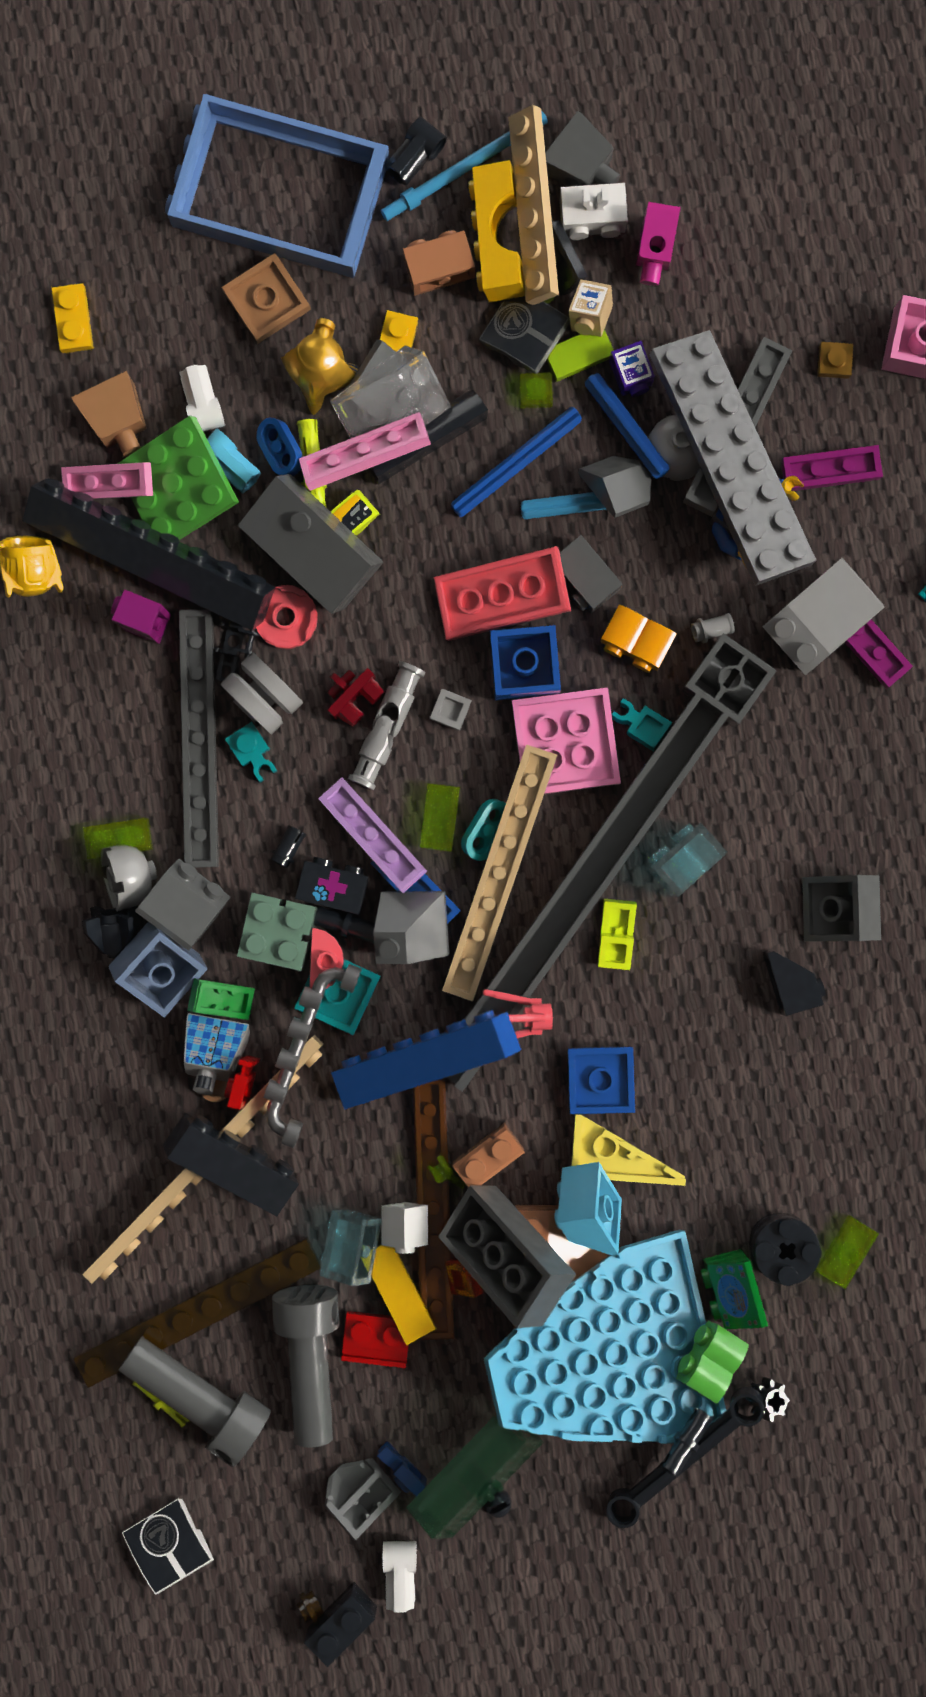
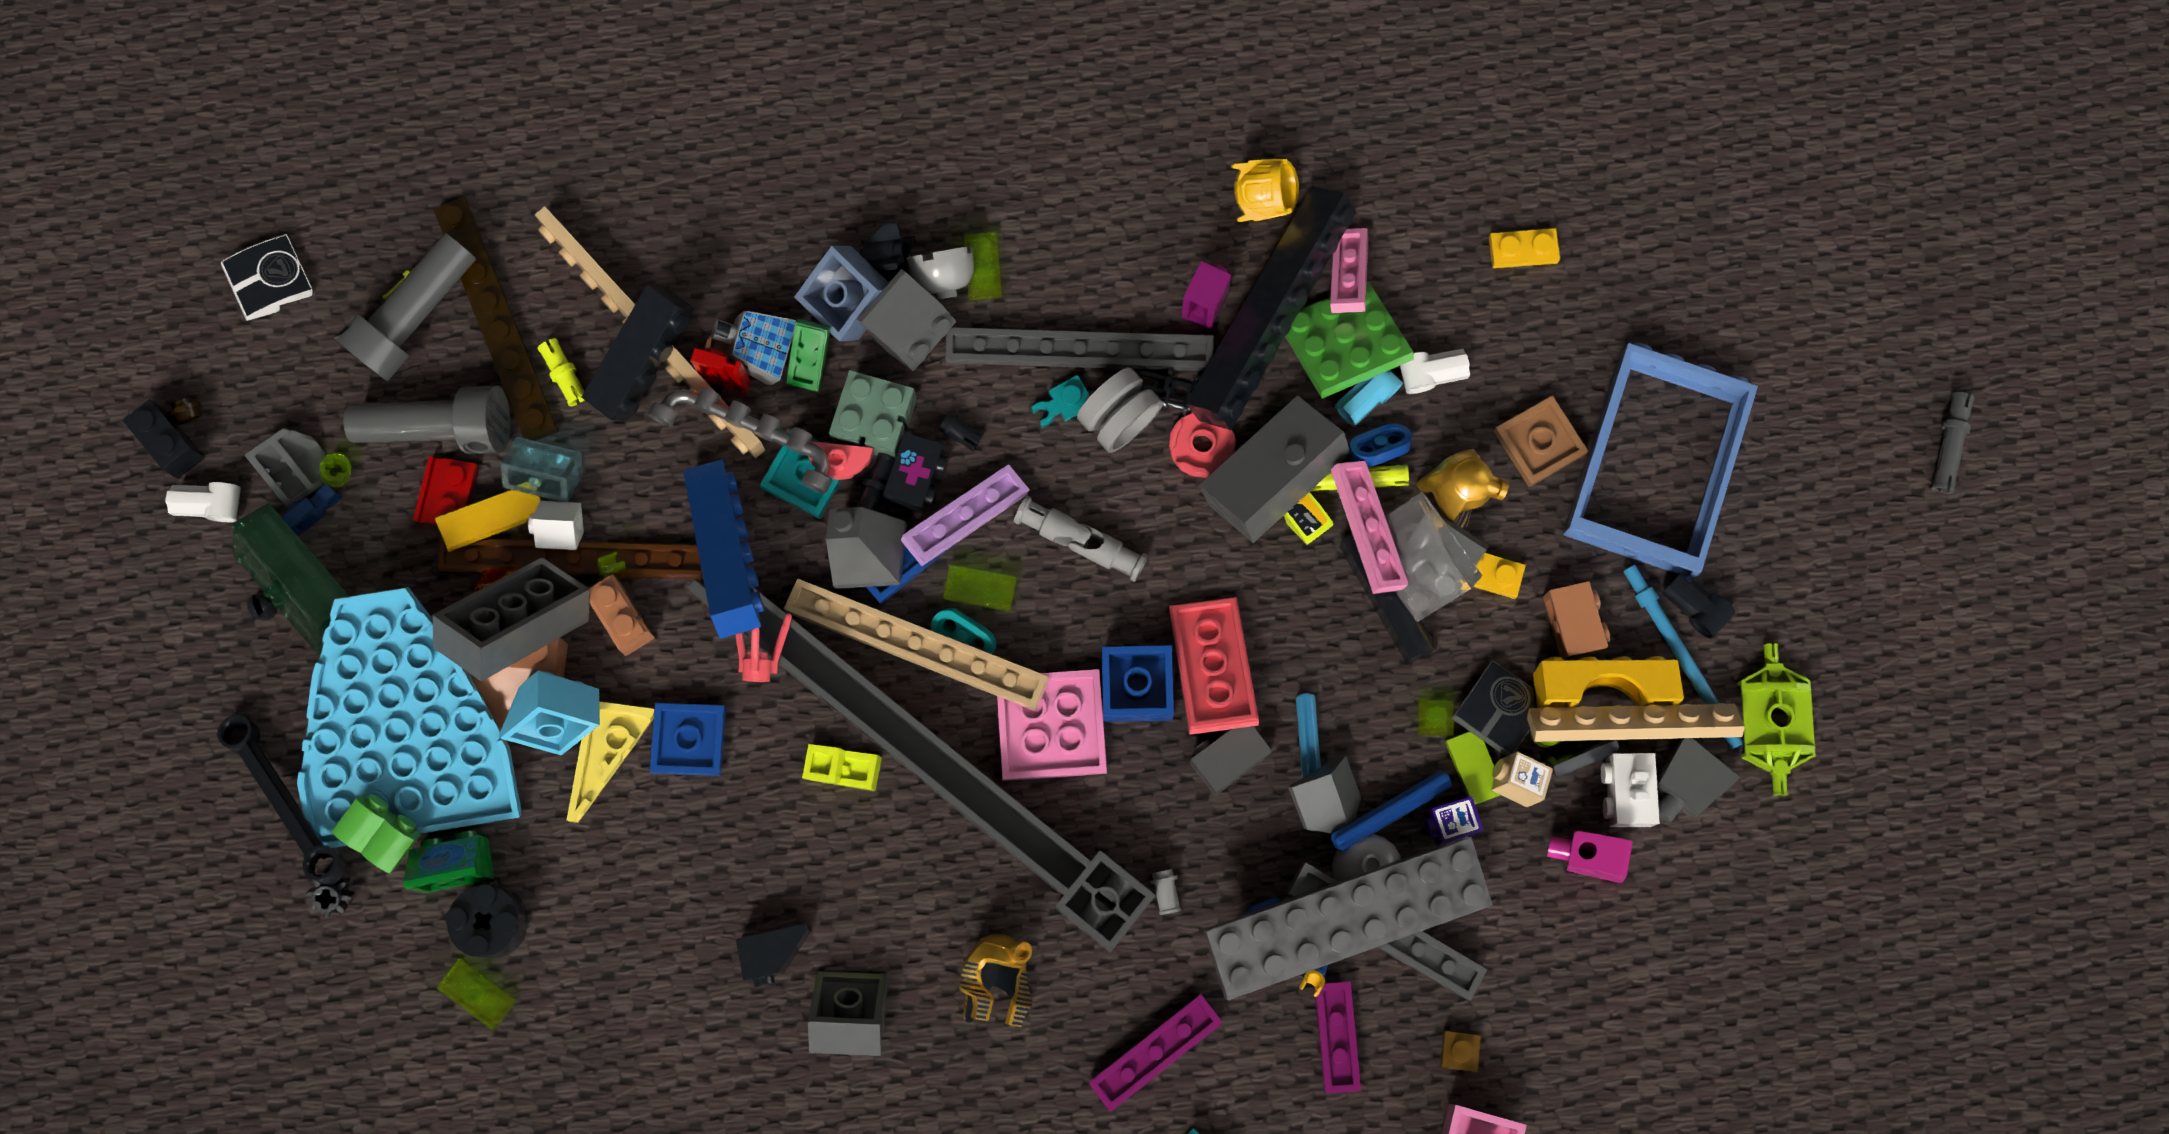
camera: 90 degrees right, 10 degrees down
(113, 412) = (1422, 282): medium nougat torso -> none
(249, 1239) = (562, 371): none -> neon yellow pin
(352, 1456) = (330, 461): none -> clear neon green bush
(363, 685) = (1124, 517): dark red hips -> none
(450, 709) = (1093, 606): light grey plate -> none
(495, 91) = (1765, 743): none -> lime plate
(516, 461) = (1358, 692): blue axle -> none
(637, 638) = (1158, 808): light orange brick -> none
(645, 727) = (1062, 810): teal plate -> none
(686, 859) = (911, 839): clear light blue brick -> none
(686, 1442) = (295, 797): black pin -> none
(788, 772) = (1001, 964): none -> pearl gold piece
(823, 616) = (1168, 1010): light grey slope -> none

